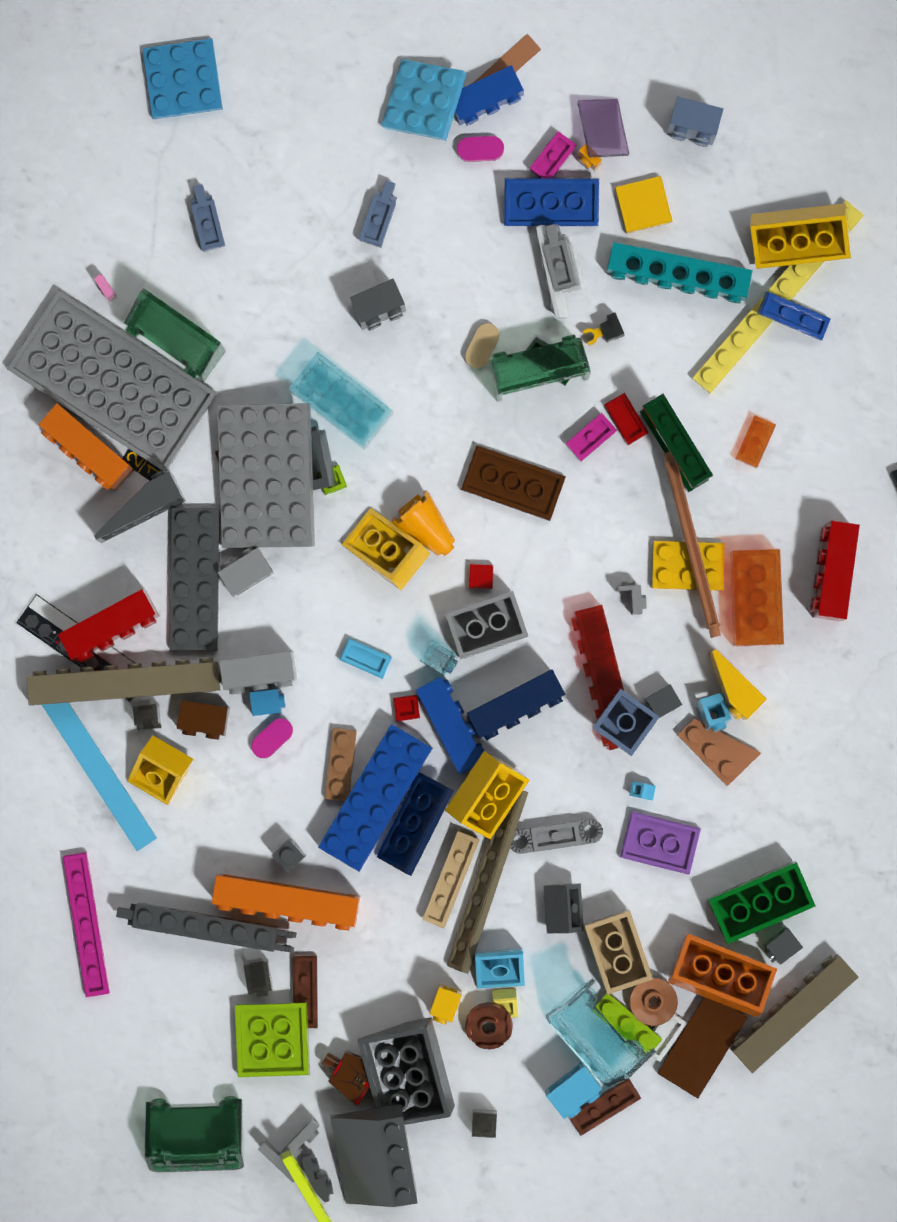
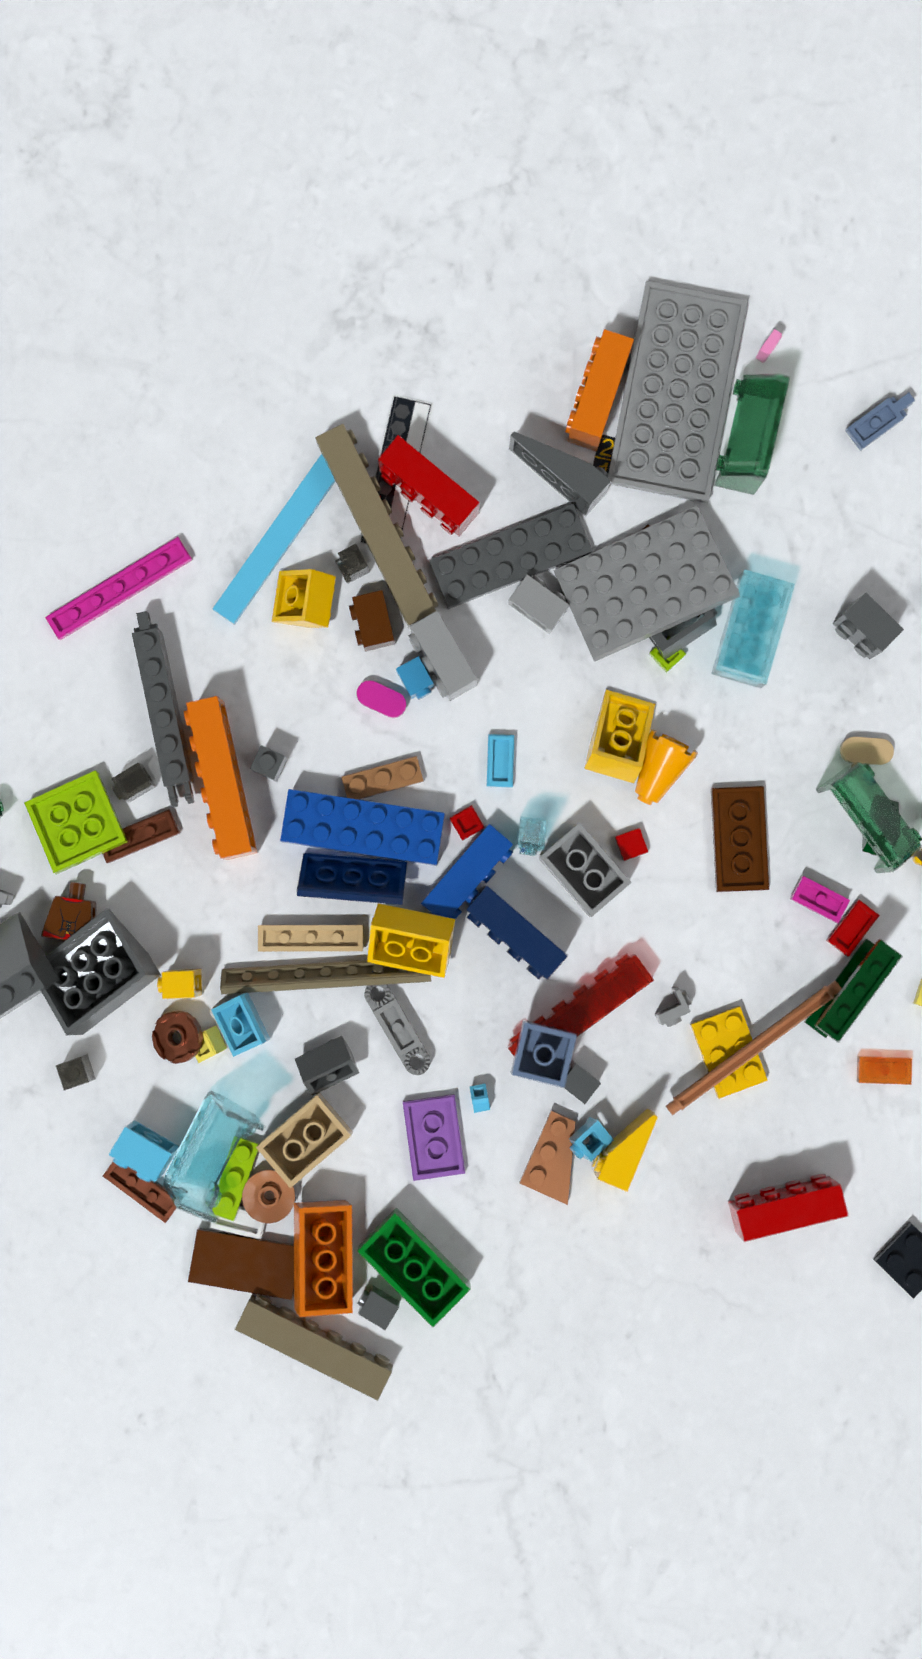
camera: 60 degrees right, 0 degrees up
(756, 597) = (725, 1136): clear orange brick -> none

